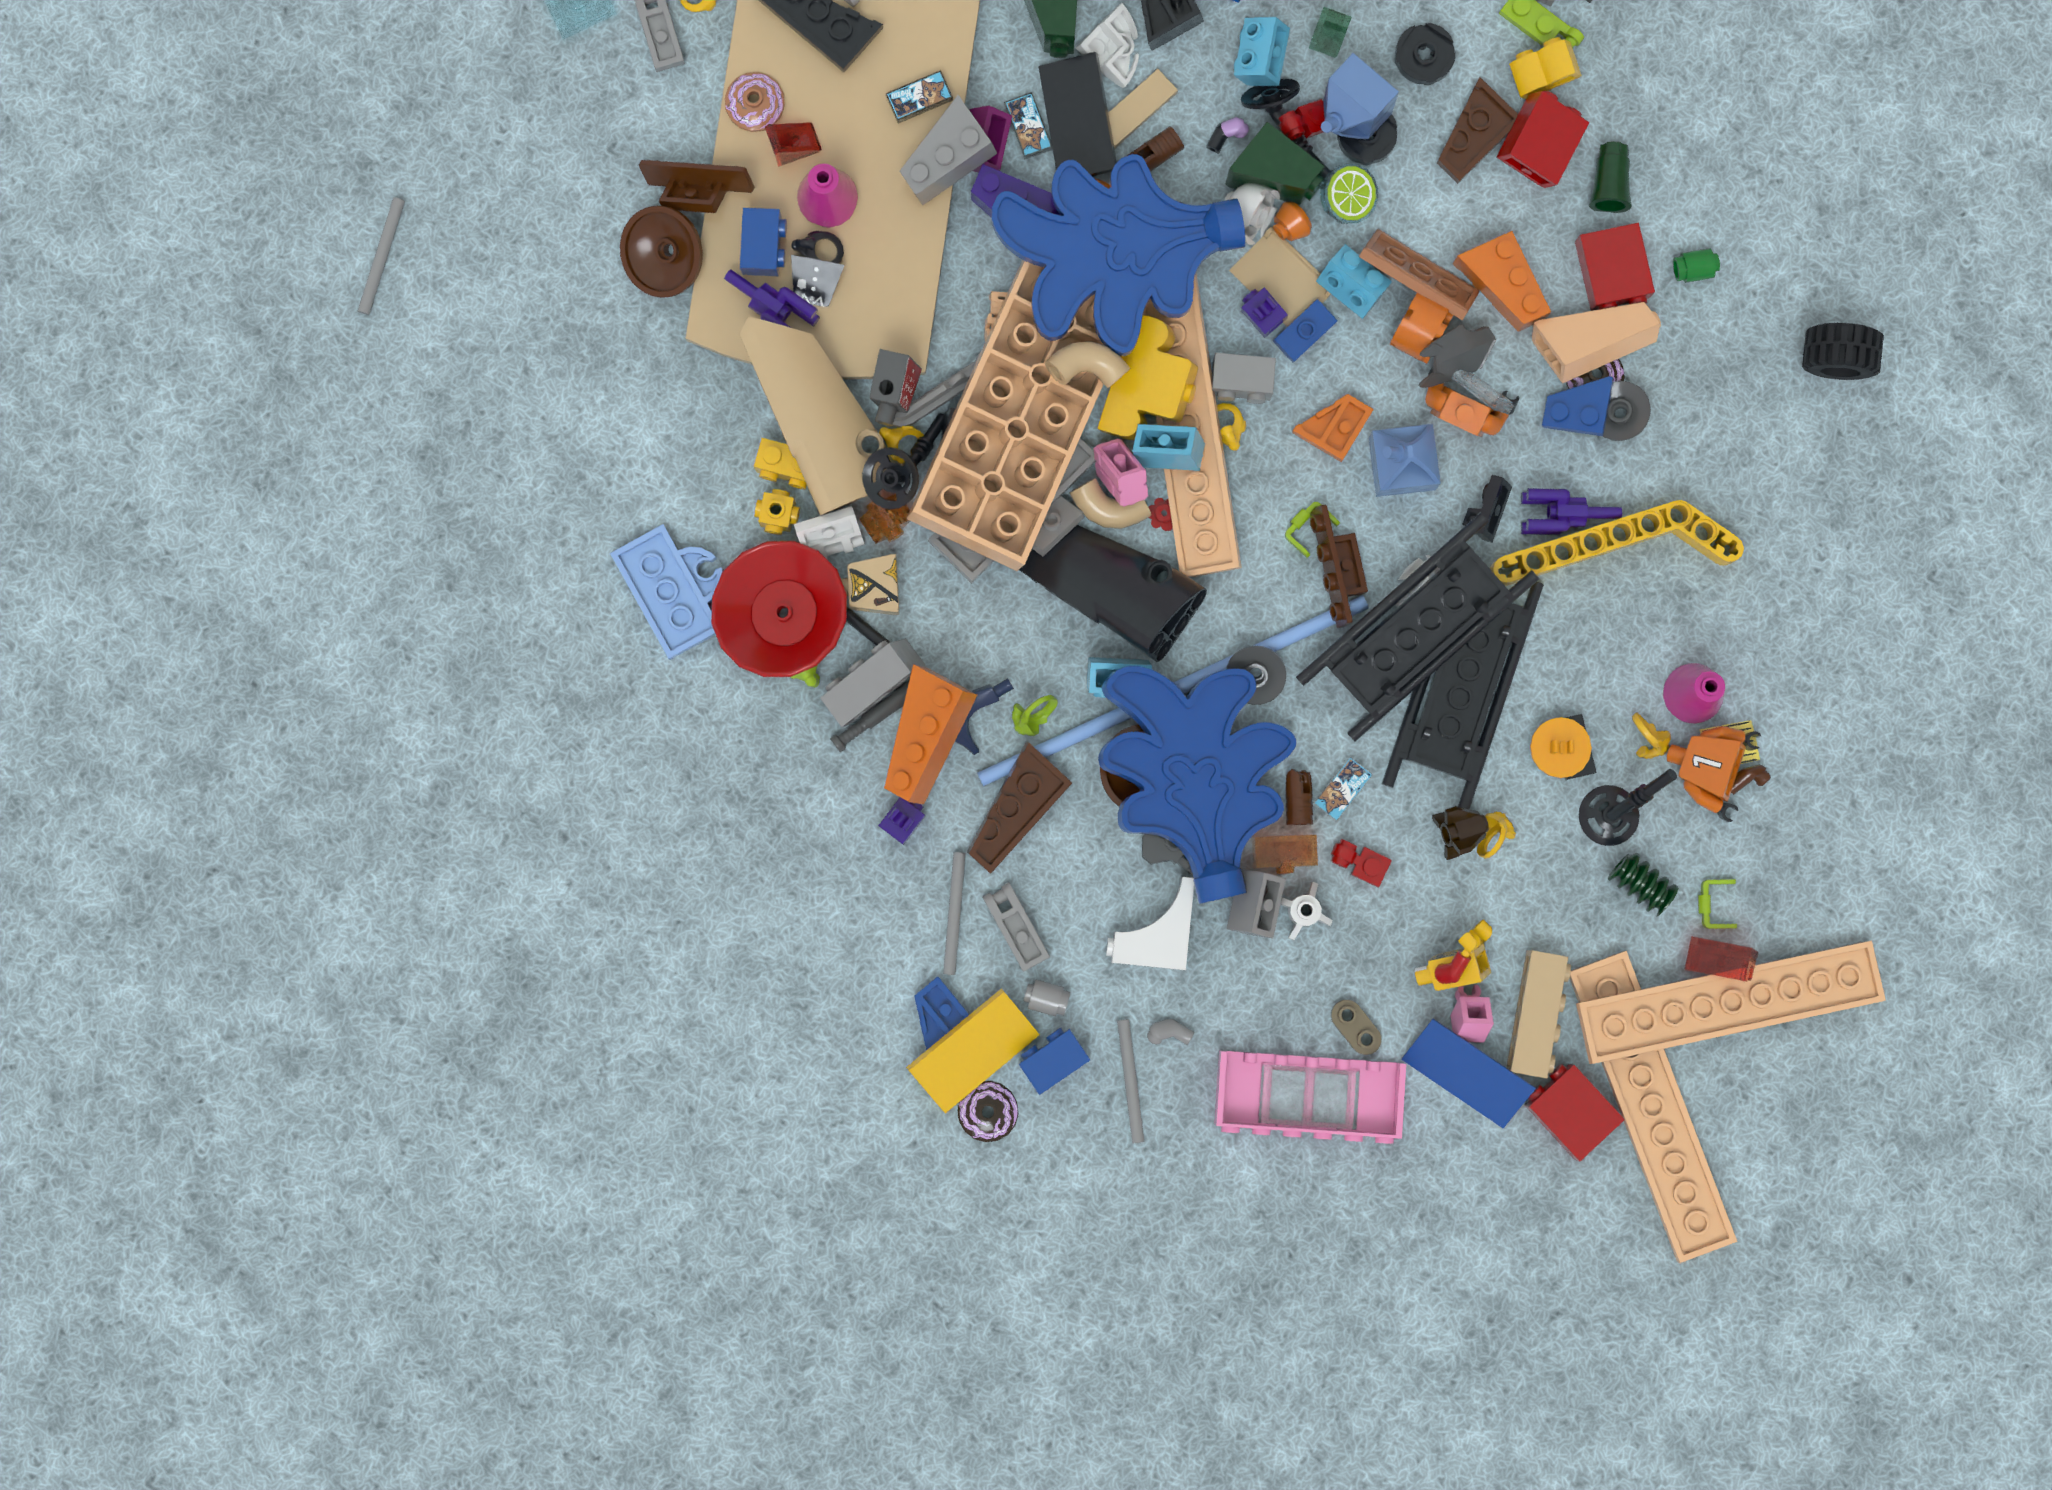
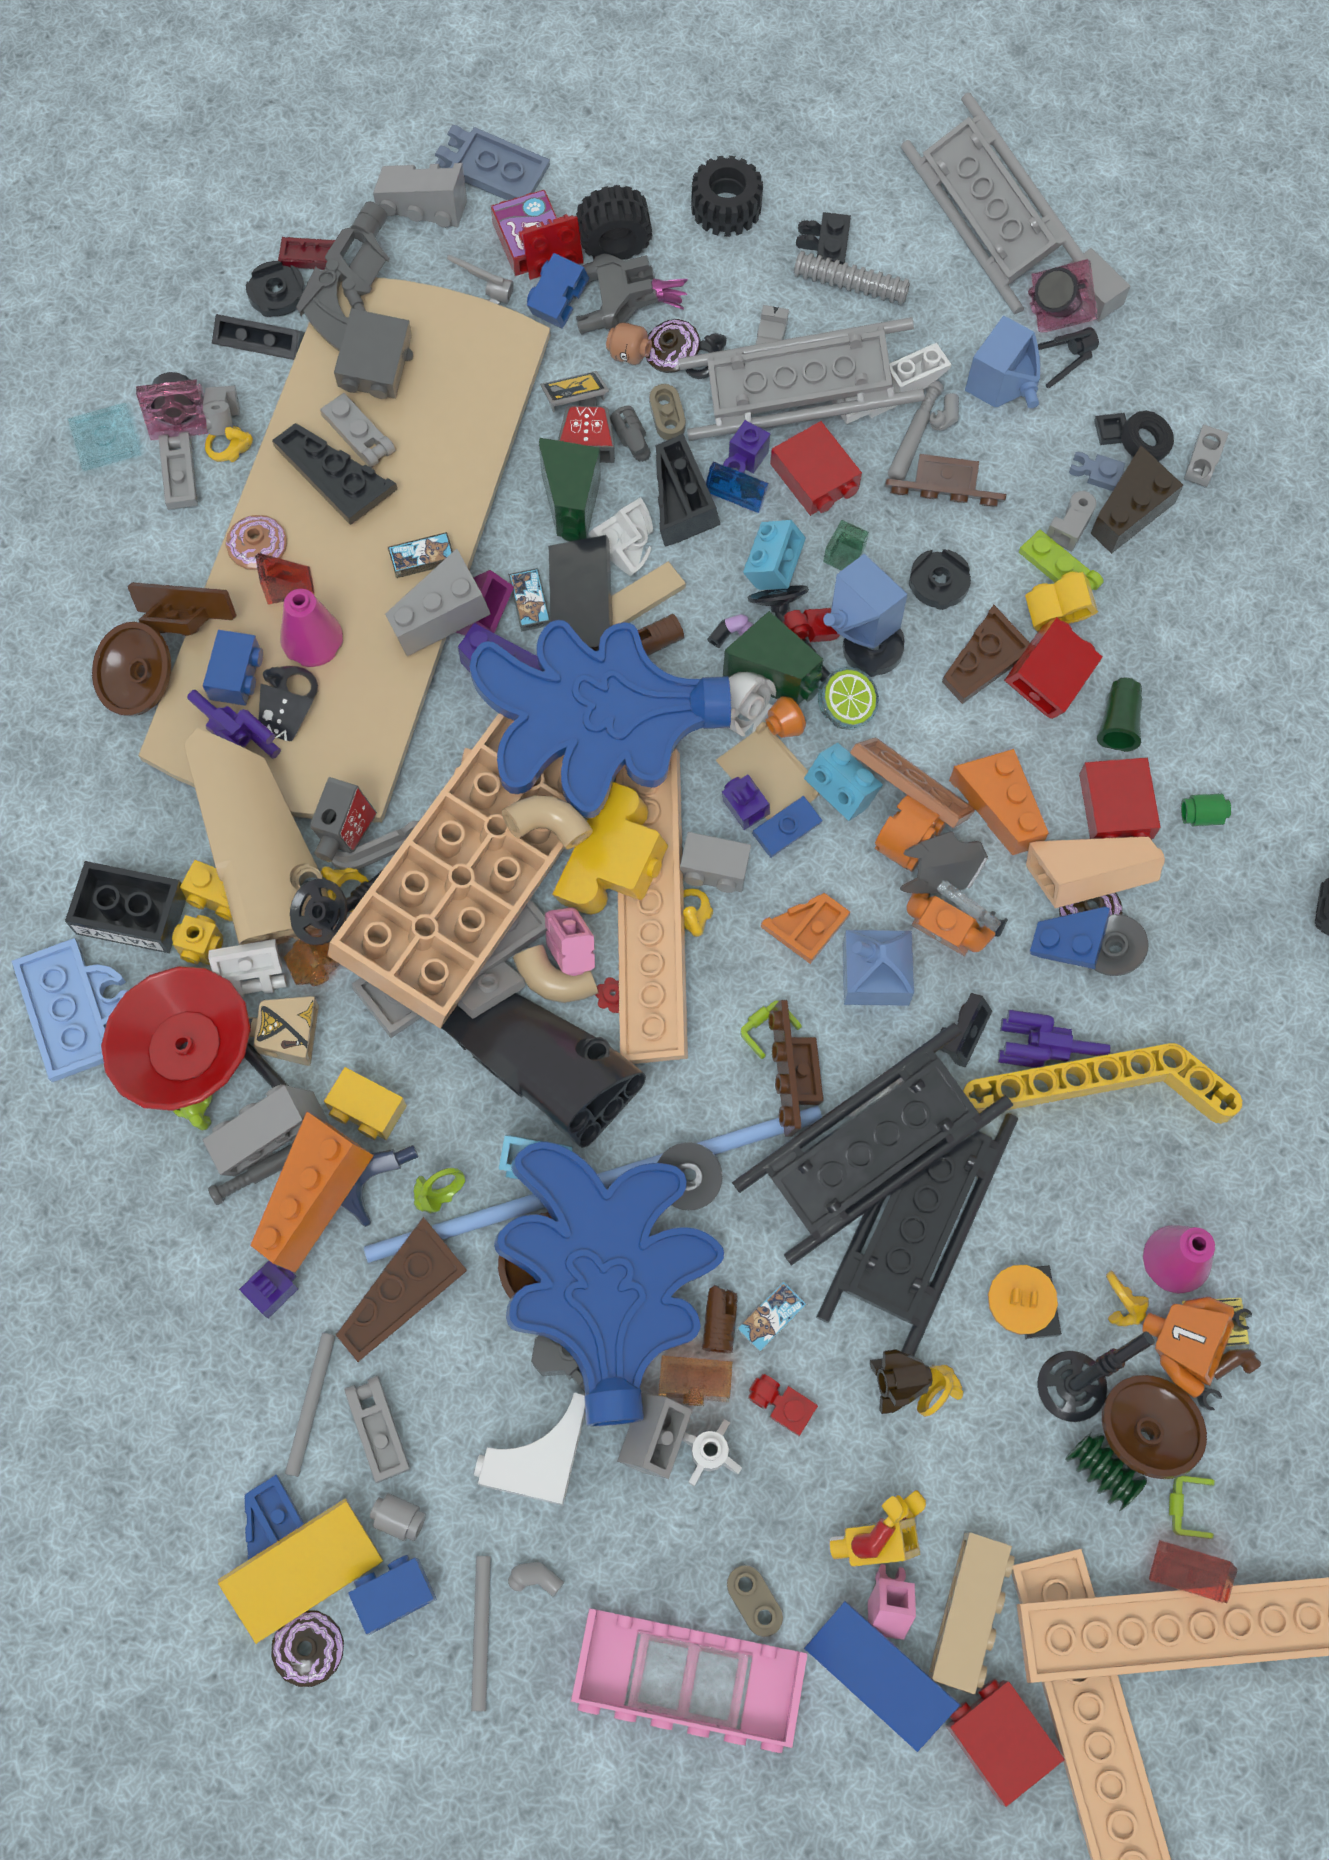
camera: 10 degrees right, 15 degrees down
(706, 489) = (126, 907): none -> black brick
(958, 647) = (364, 1104): none -> yellow brick
(1168, 447) = (624, 919): medium azure brick -> none
(1690, 830) = (1162, 1412): none -> reddish brown dish

